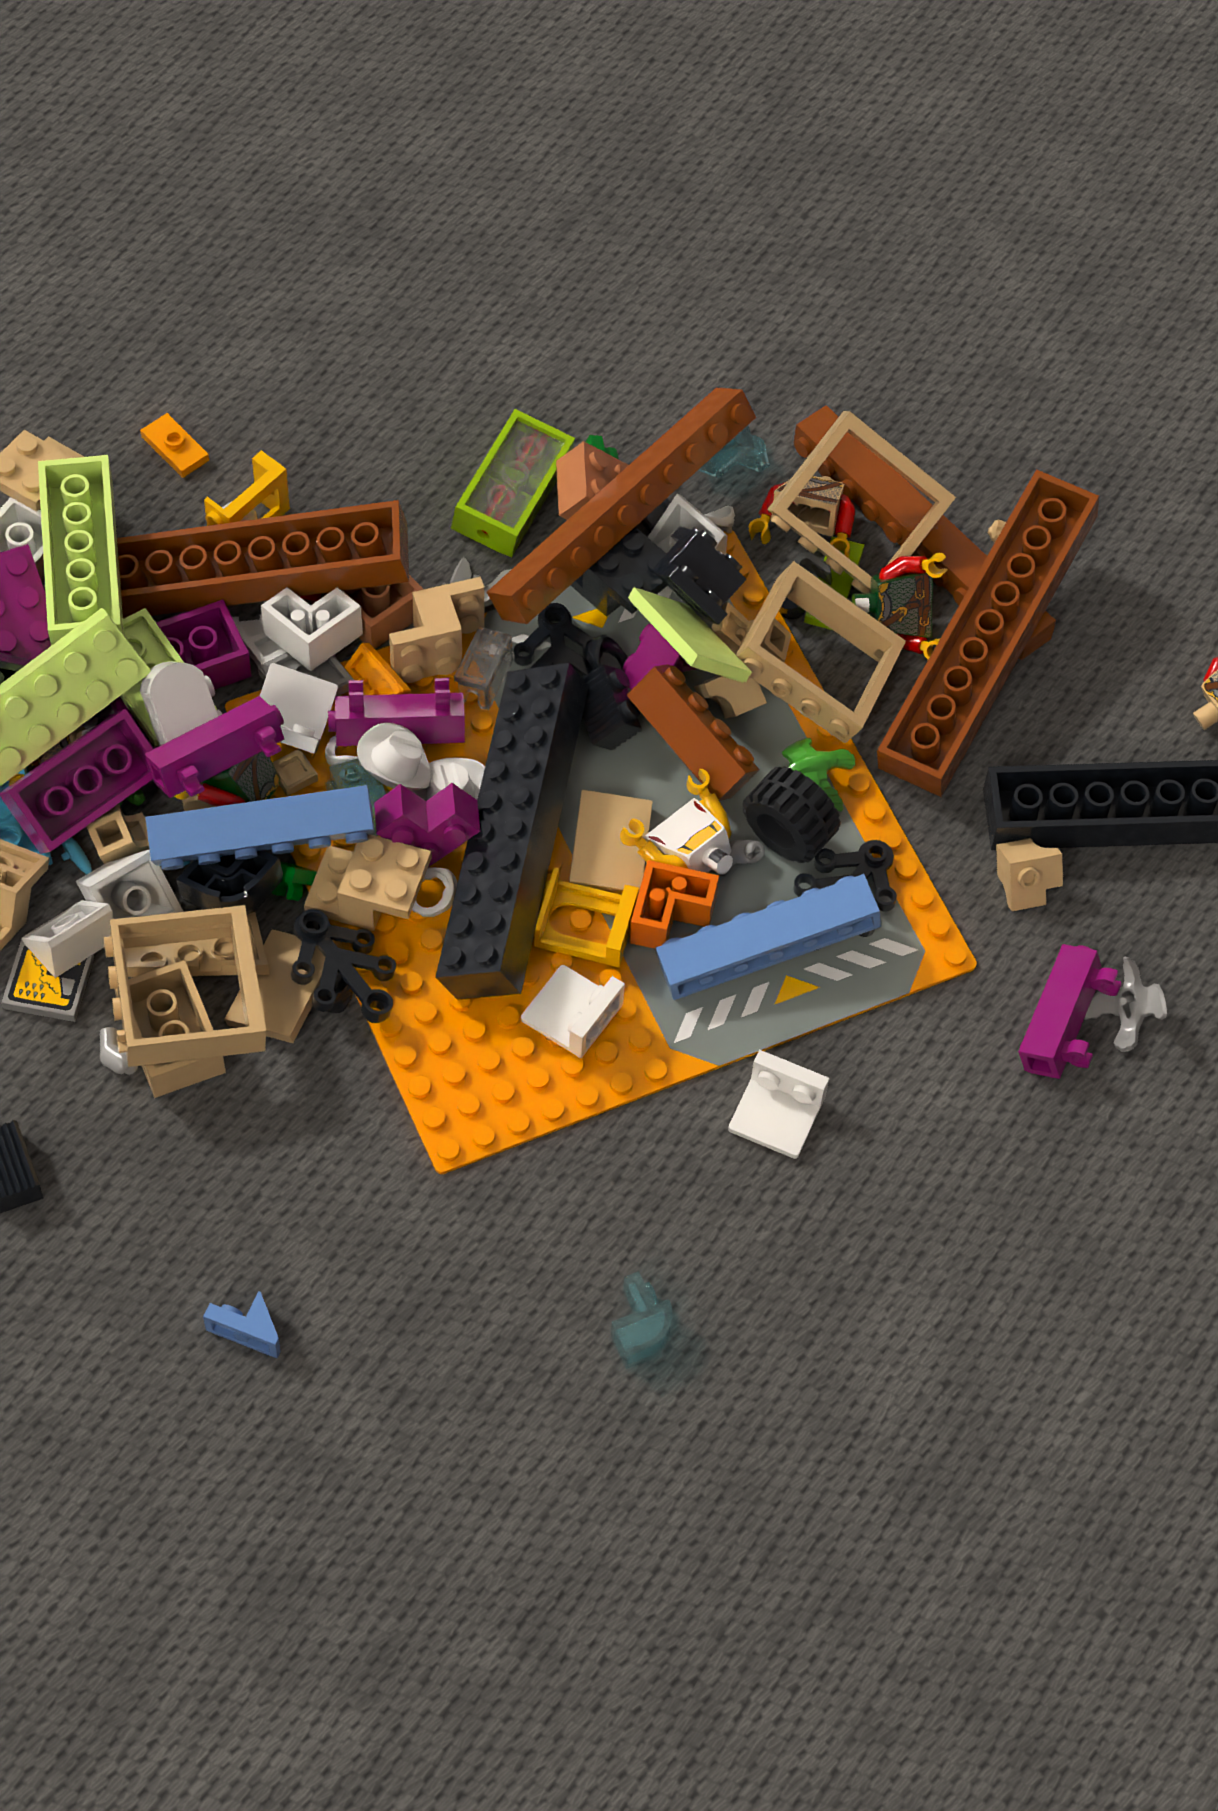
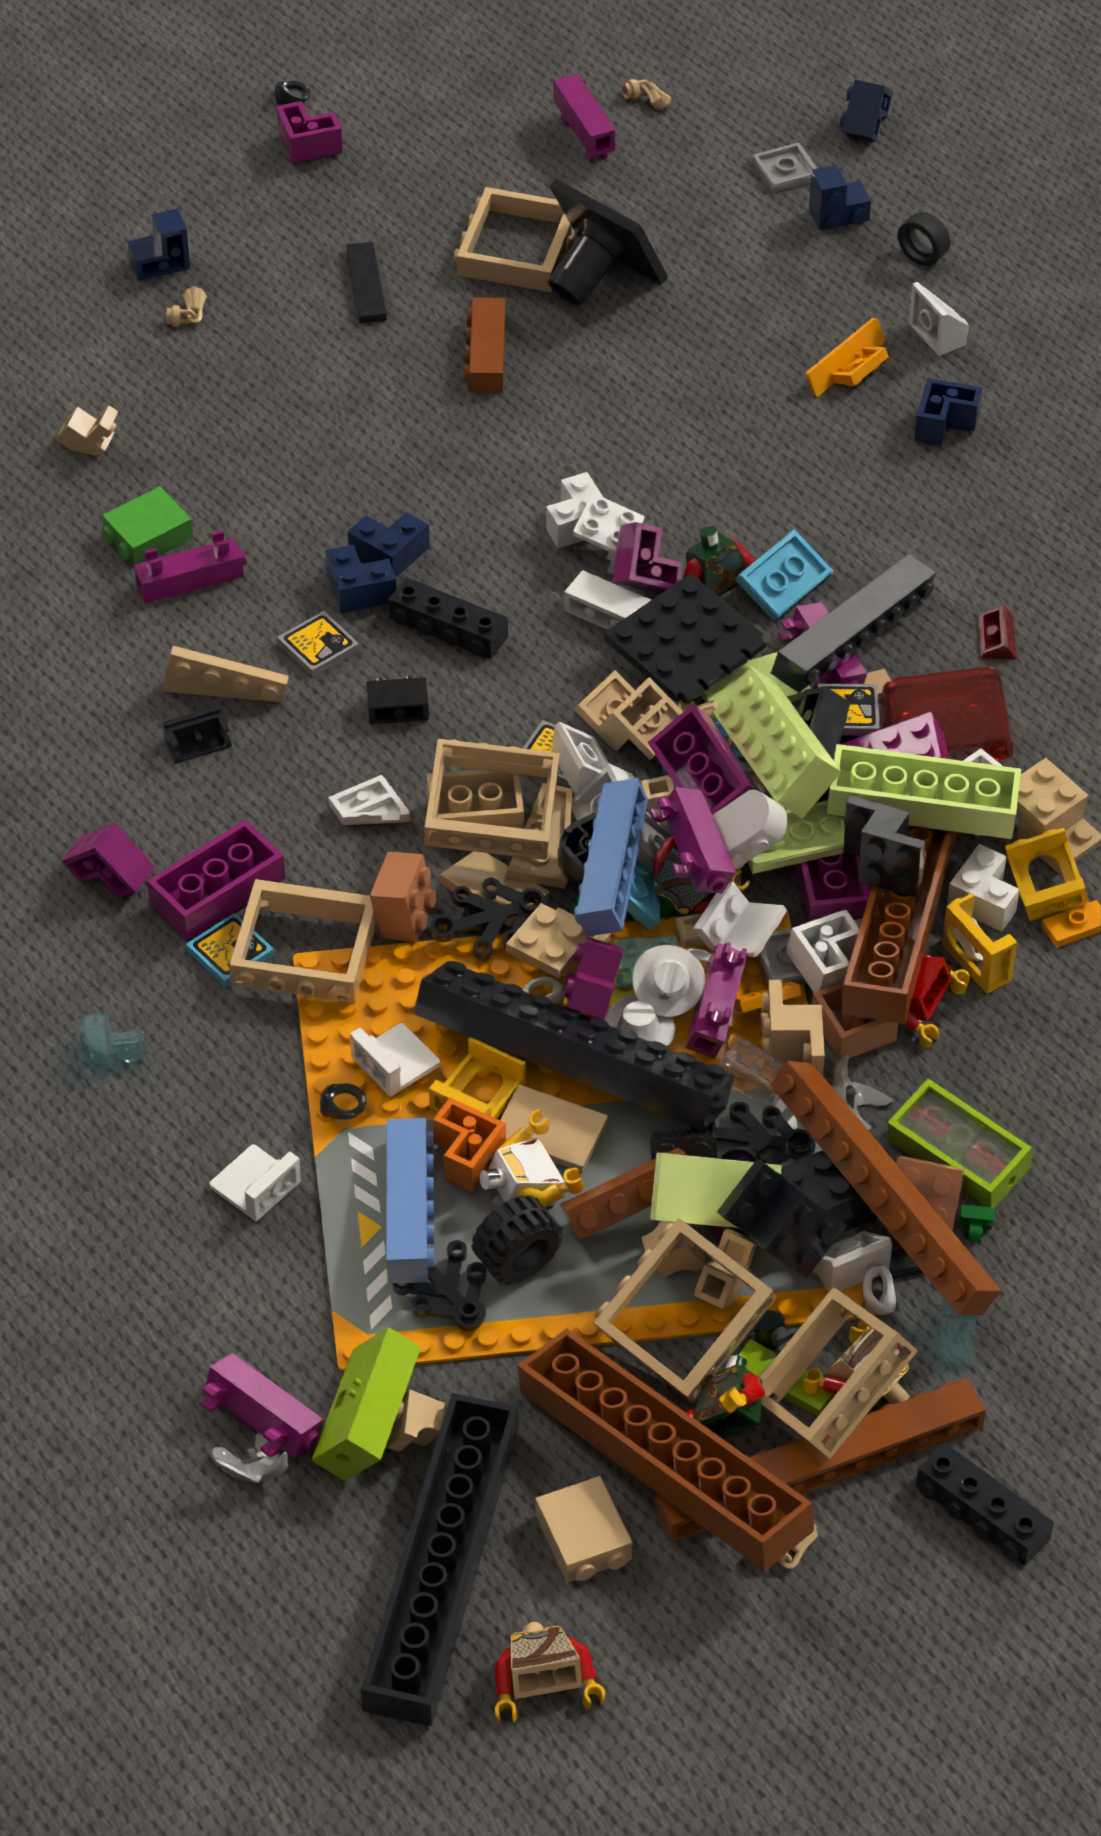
camera: 110 degrees right, 10 degrees down
(26, 1377) = (212, 676): none -> tan wing
(122, 1383) = (196, 734): none -> black hinge
(153, 444) = (1053, 899): none -> yellow panel
(173, 510) = (983, 876): none -> white brick
(185, 1153) = (369, 804): none -> white wing
(189, 562) = (885, 850): none -> black bracket
(252, 1331) = (209, 810): medium blue slope -> none
(344, 1056) = (402, 896): none -> nougat brick
(366, 1275) = (214, 879): none -> magenta brick
(371, 1410) = (111, 857): none -> magenta brick
(438, 1211) = (311, 903): none -> tan window
(453, 1242) = (216, 946): none -> tile
(659, 1060) = (331, 1110): none -> black piece
(817, 764) = (571, 1280): bright green animal -> none
(919, 397) = (984, 1504): none -> black brick
(1034, 905) = (366, 1404): none -> lime brick
(1079, 700) = (583, 1529): none -> tan brick

